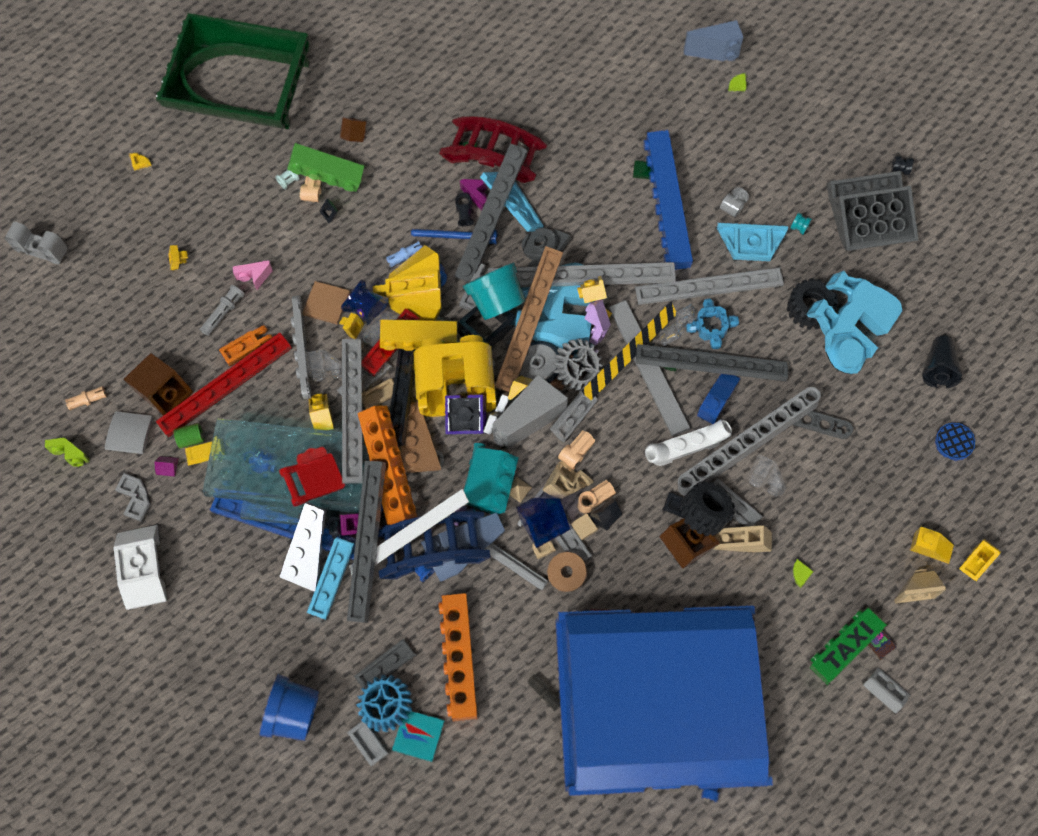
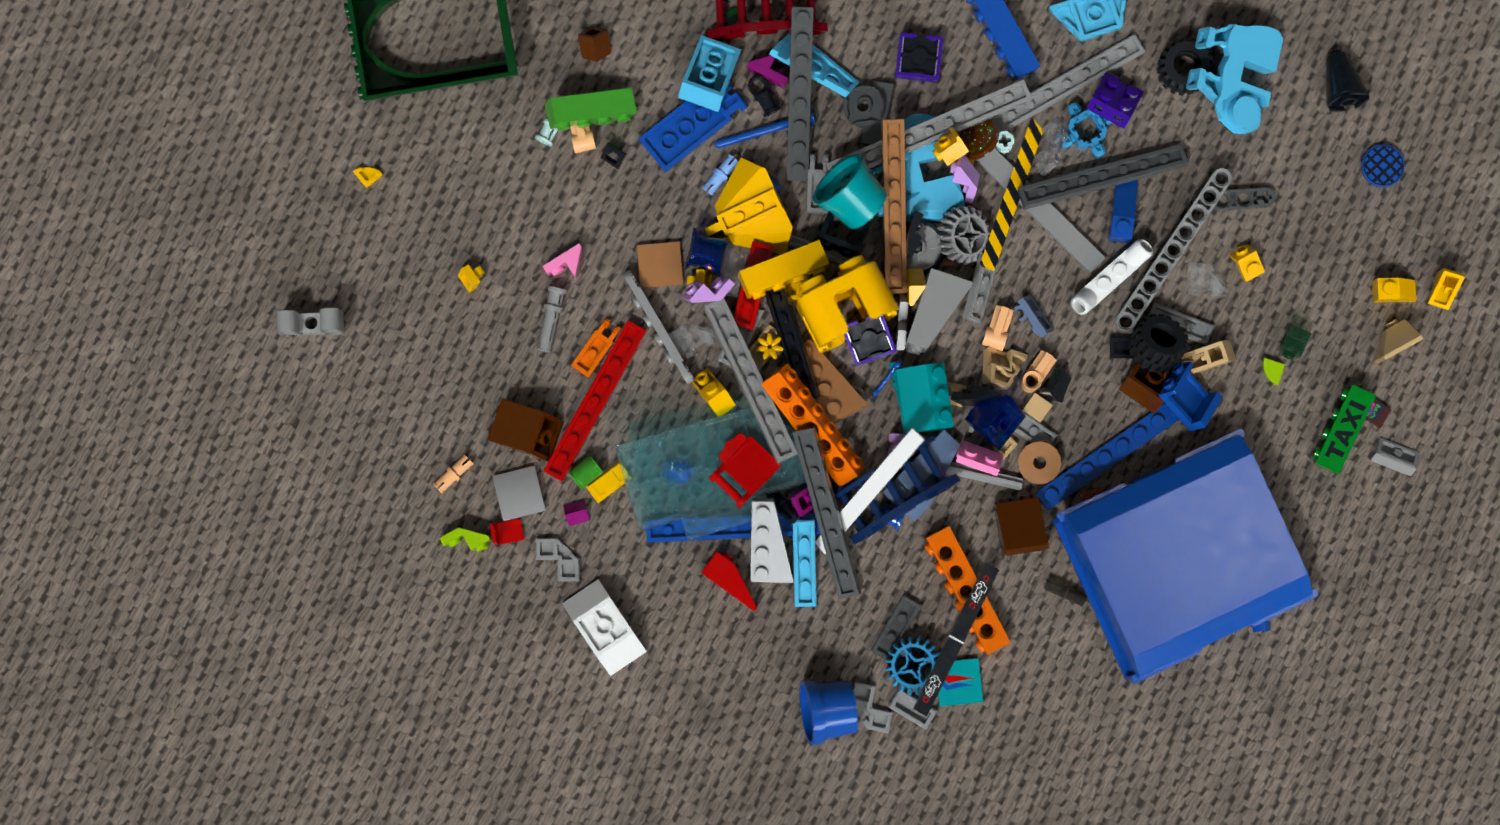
camera: 25 degrees left, 15 degrees up
(101, 458) = (506, 532): none -> red bracket
(261, 563) = (726, 575): none -> red slope
(326, 719) = (871, 717): none -> light grey tile
(344, 328) = (699, 292): none -> lavender slope
(382, 393) = (770, 342): none -> yellow plant
(400, 210) = (688, 129): none -> blue hinge
(427, 176) = (709, 73): none -> medium azure slope
(427, 693) = (956, 639): none -> black sticker
(479, 444) = (896, 365): none -> blue hinge
(516, 547) = (979, 458): none -> bright pink bracket
(527, 619) = (1020, 526): none -> reddish brown slope
(533, 351) = (912, 240): none -> black slope
(536, 490) = (976, 395): none -> black slope
(597, 223) = (918, 58): none -> black piece
(611, 450) = (1031, 310): none -> sand blue plate
(620, 297) = (980, 139): none -> reddish brown tile
(634, 588) = (1106, 456): none -> blue plate
(644, 312) = (1007, 137): none -> light aqua bush
(716, 563) = (1188, 398): none -> blue panel
(744, 307) = (1115, 100): none -> dark purple piece
(810, 475) = (1247, 262): none -> yellow bracket
(827, 555) = (1294, 342): none -> clear green brick

